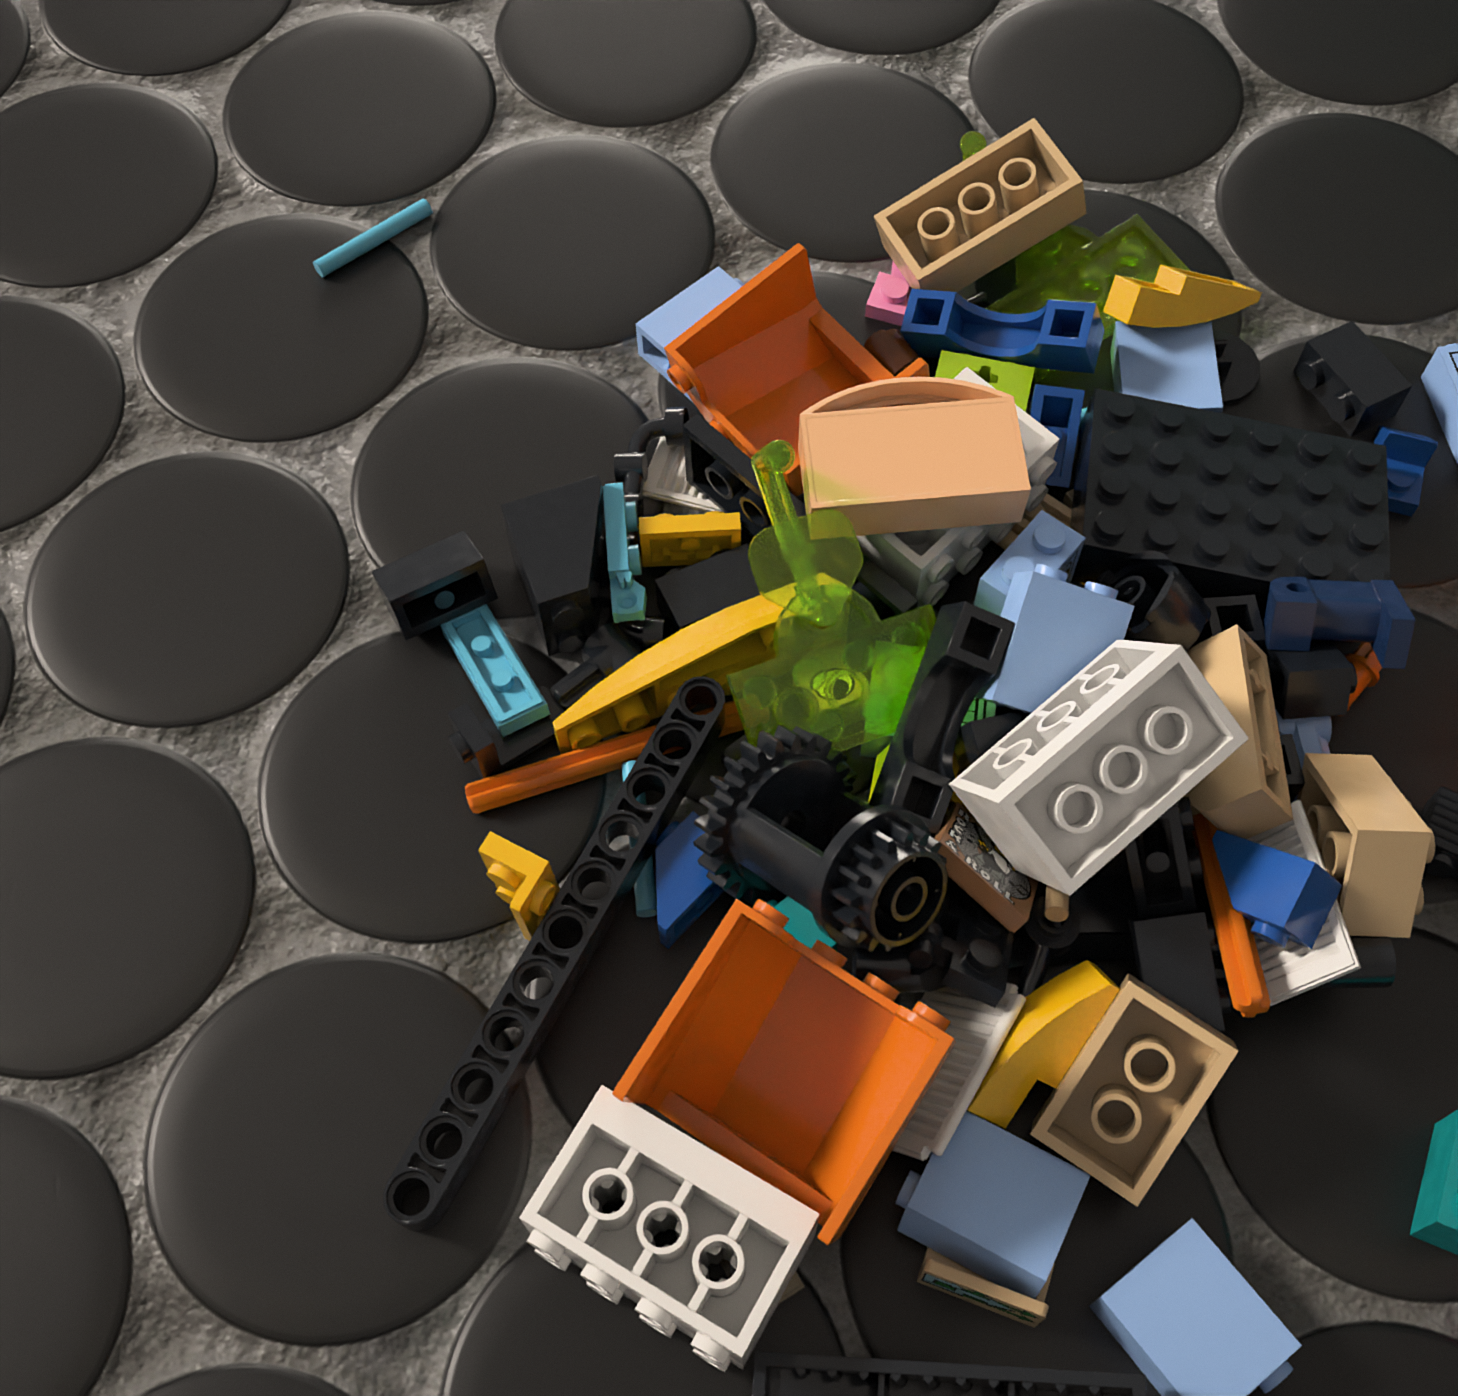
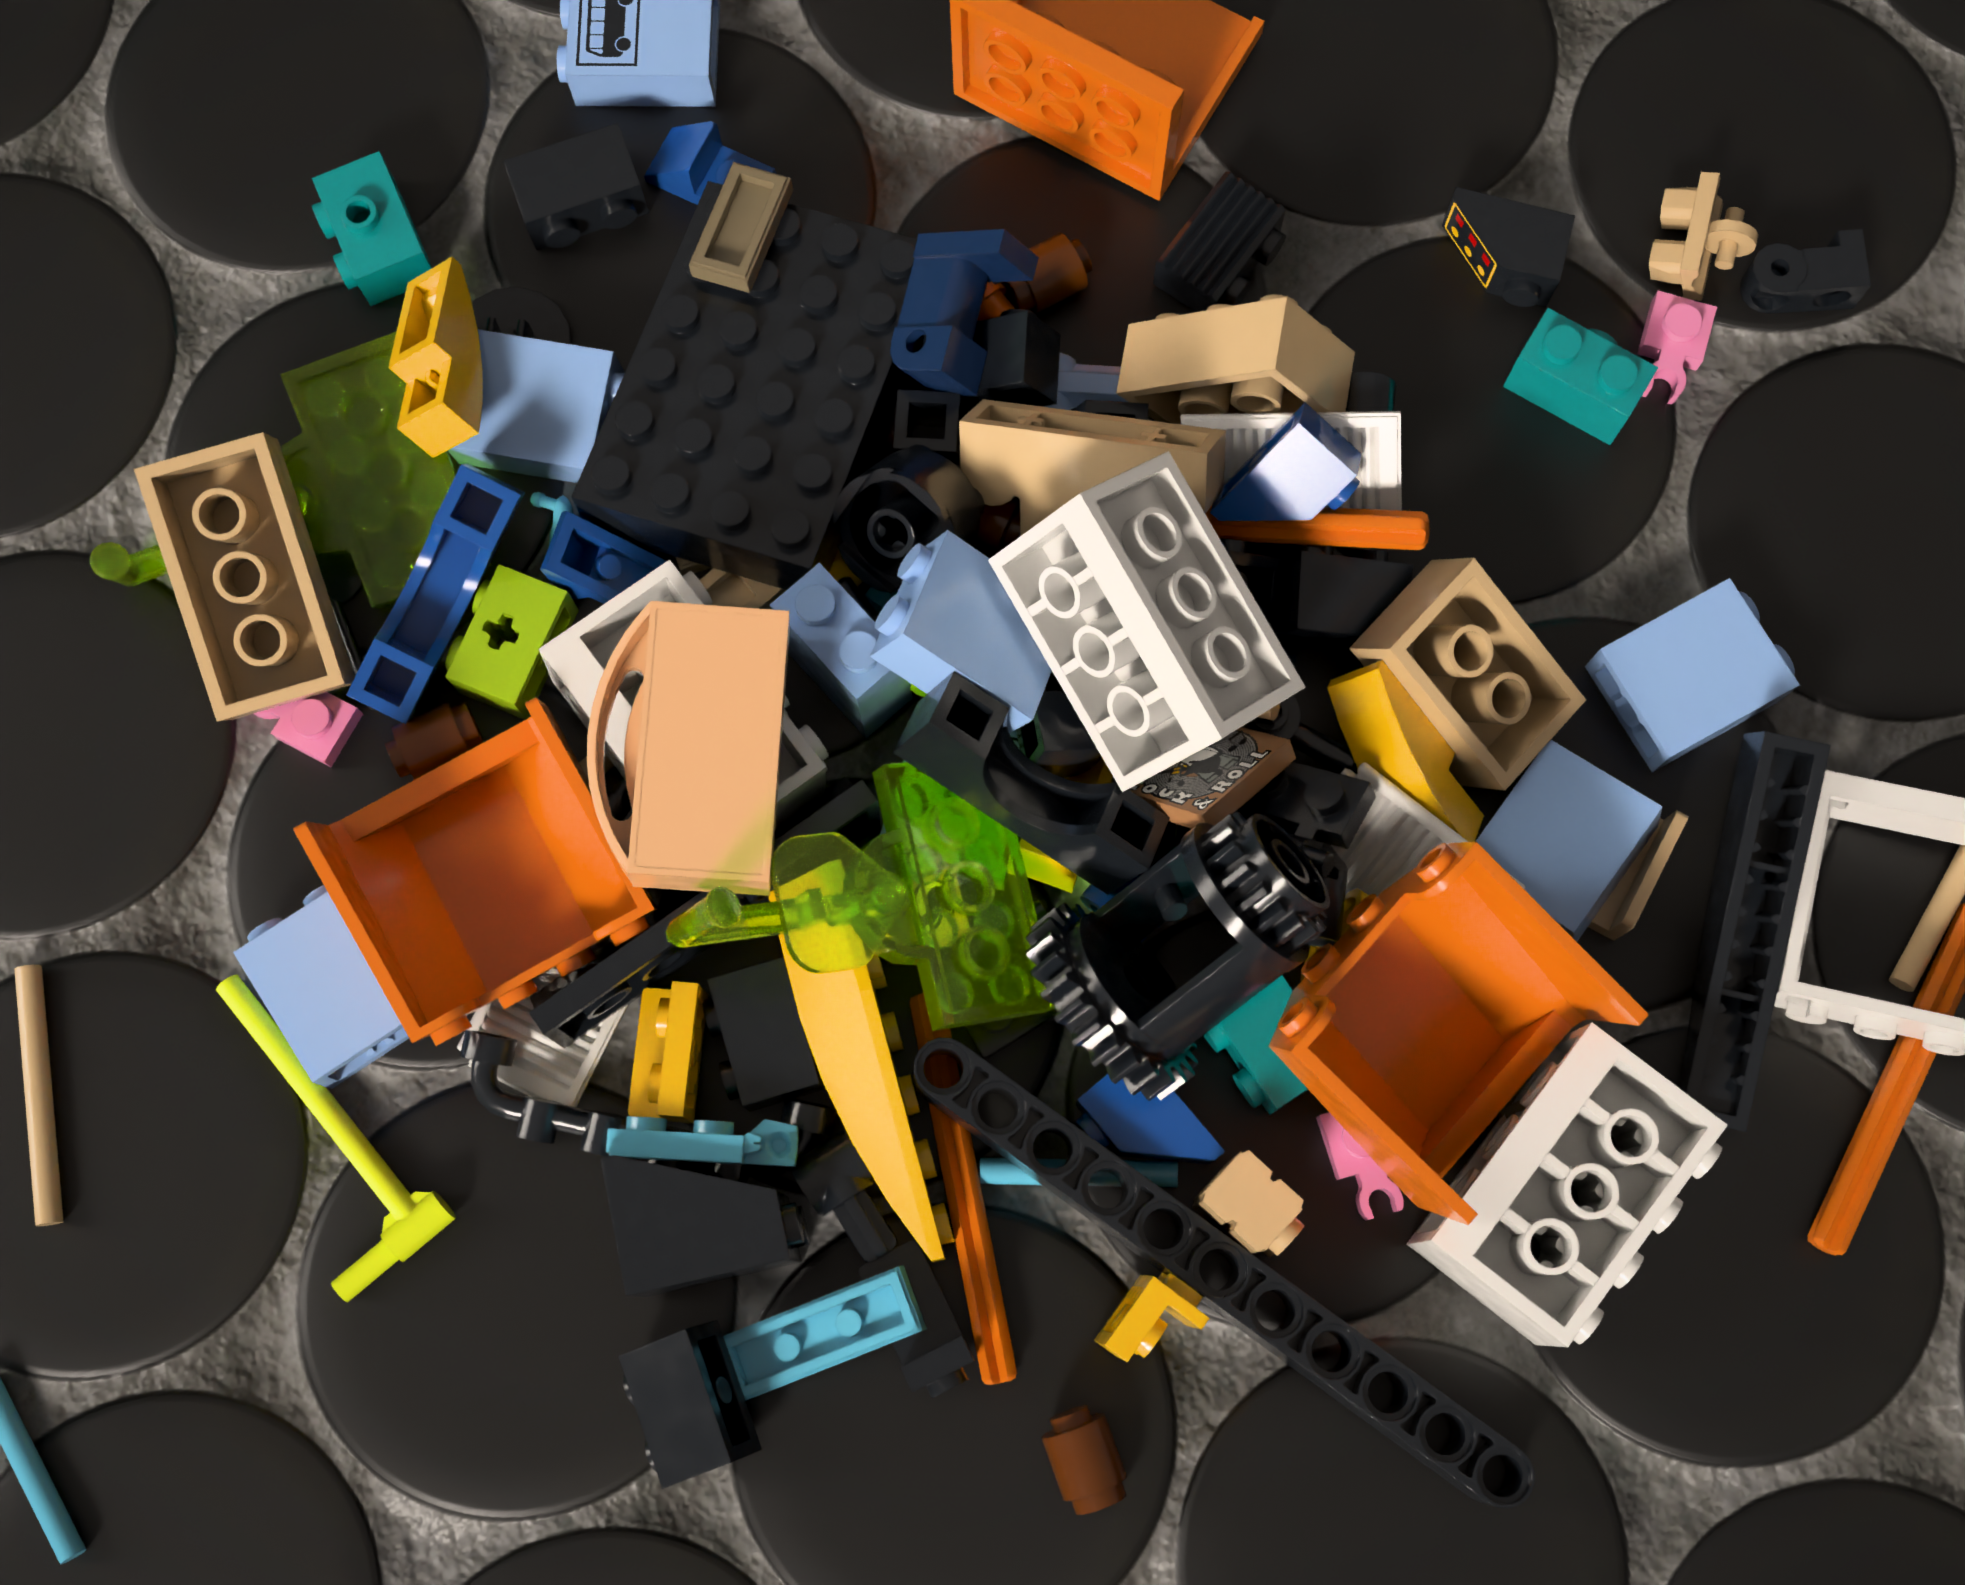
camera: 80 degrees left, 15 degrees up
(410, 865) = (1085, 1460): none -> reddish brown brick
(554, 409) = (412, 1217): none -> neon yellow bar
(611, 199) = (38, 1095): none -> tan bar
(621, 952) = (1251, 1206): none -> tan brick
(1275, 260) = (372, 228): none -> teal brick
(1353, 462) = (741, 227): none -> dark tan tile
(1400, 709) = (1058, 275): none -> reddish brown brick

